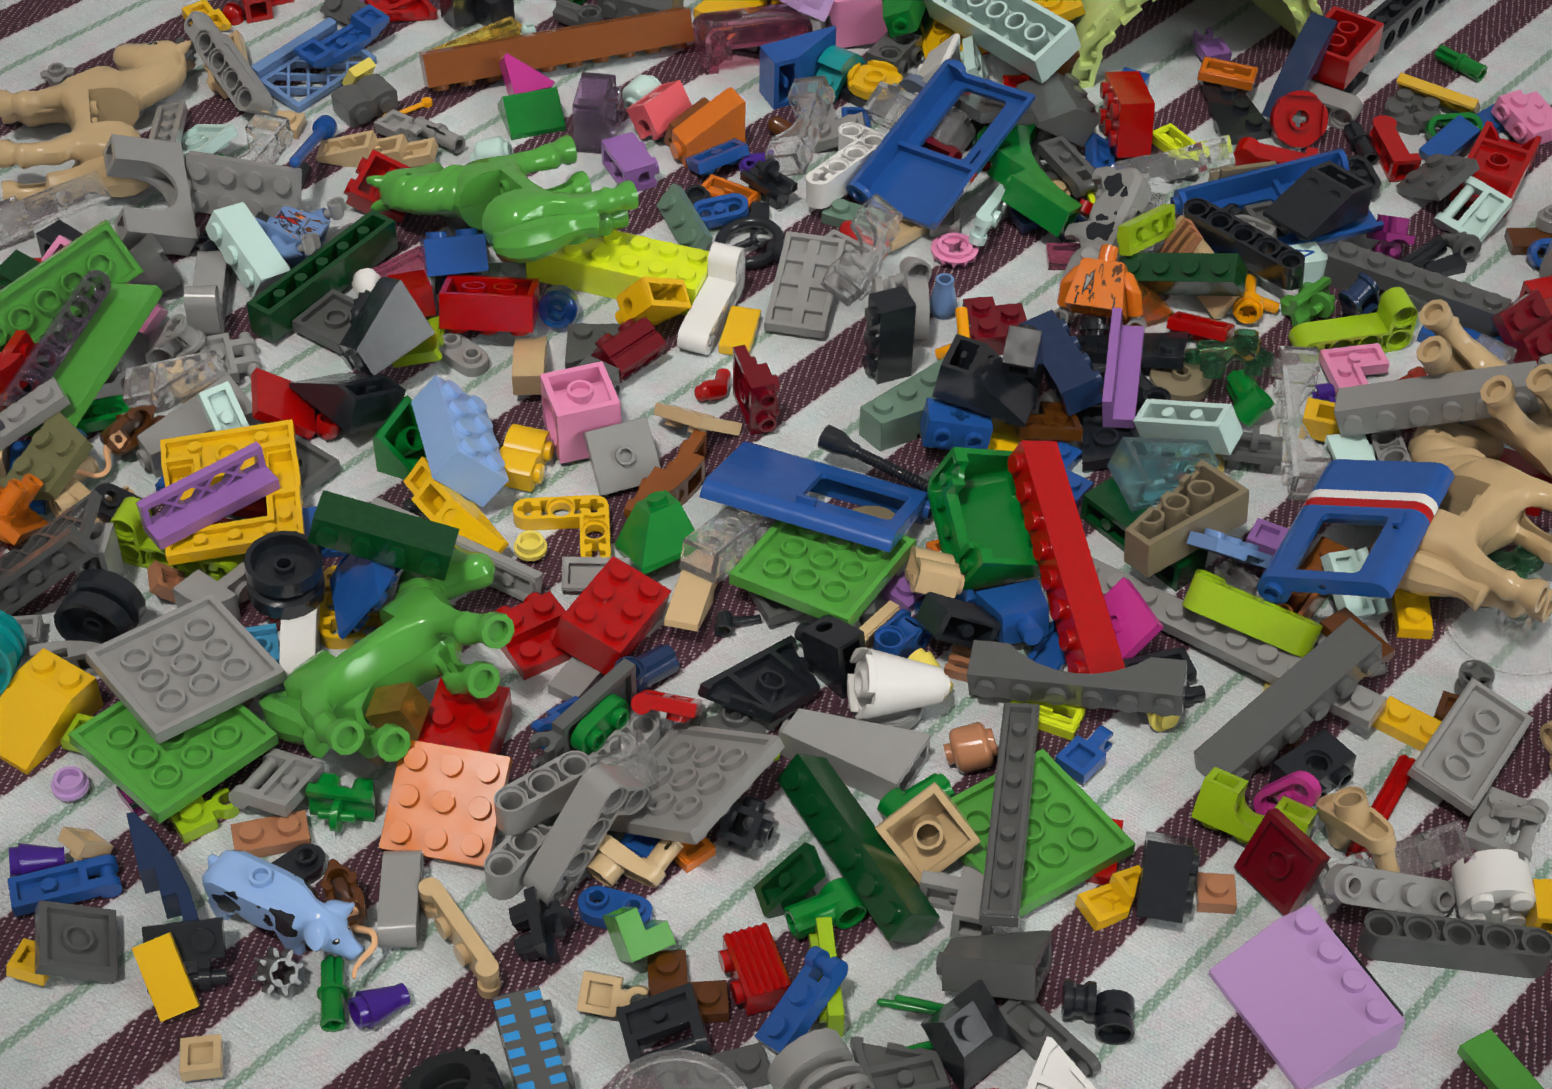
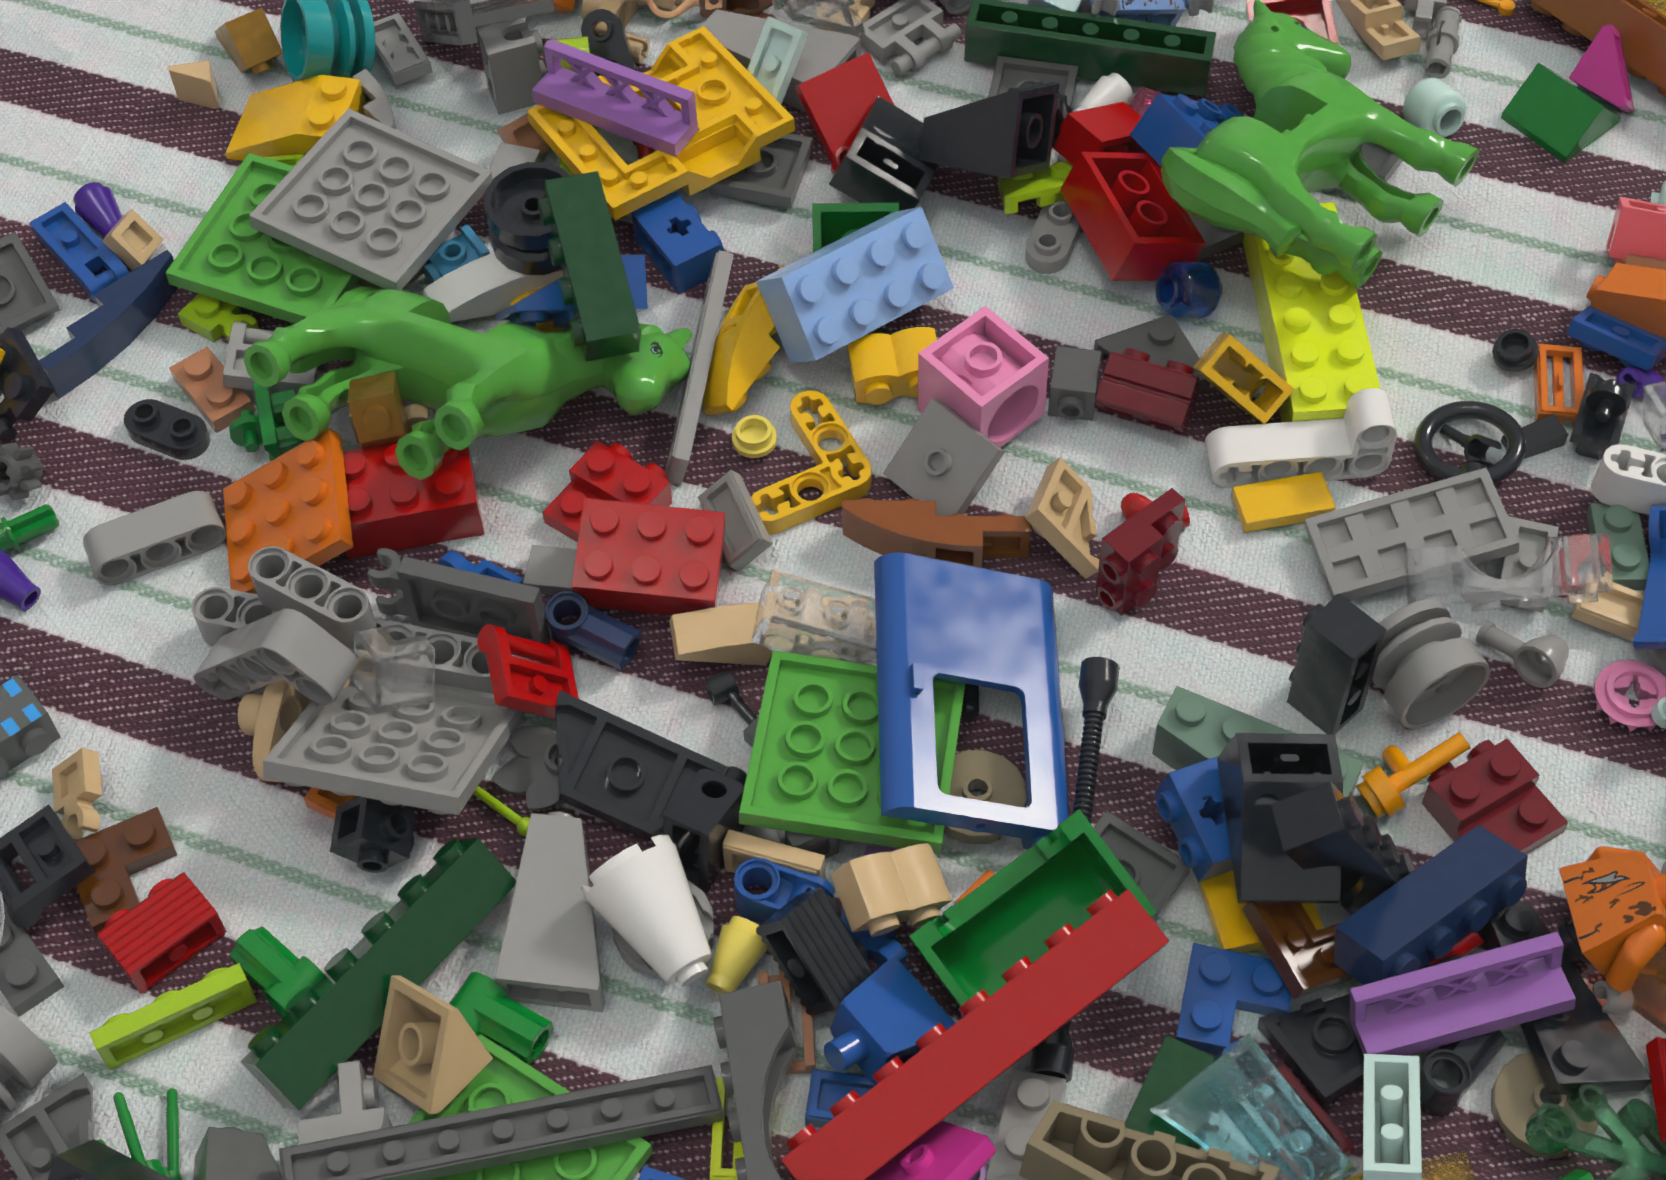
camera: 70 degrees right, 10 degrees up
(69, 783) = (209, 189): lavender plate -> none
(99, 607) = (434, 100): black wheel -> none
(278, 903) = (76, 428): light blue animal -> none
(342, 885) = (121, 491): reddish brown animal -> none
(467, 944) = (115, 617): tan plate -> none
(528, 364) = (1067, 304): tan slope -> none
(544, 923) = (154, 684): black hips -> none
(595, 111) = (1587, 168): clear purple brick -> none
(600, 724) = (449, 611): green plate -> none
(610, 900) = (217, 748): blue plate -> none
(629, 160) = (1530, 250): medium lavender brick -> none
(633, 938) = (156, 781): bright green piece -> none
(654, 532) = (828, 549): green slope -> none
(683, 218) = (1452, 353): sand green plate -> none
(722, 209) = (1508, 386): blue plate -> none
(790, 881) = (307, 924): dark green slope -> none
(803, 1000) = (106, 995): blue plate -> none
(943, 297) = (1501, 714): medium blue cone -> none
(971, 747) = (617, 1050): nougat head -> none

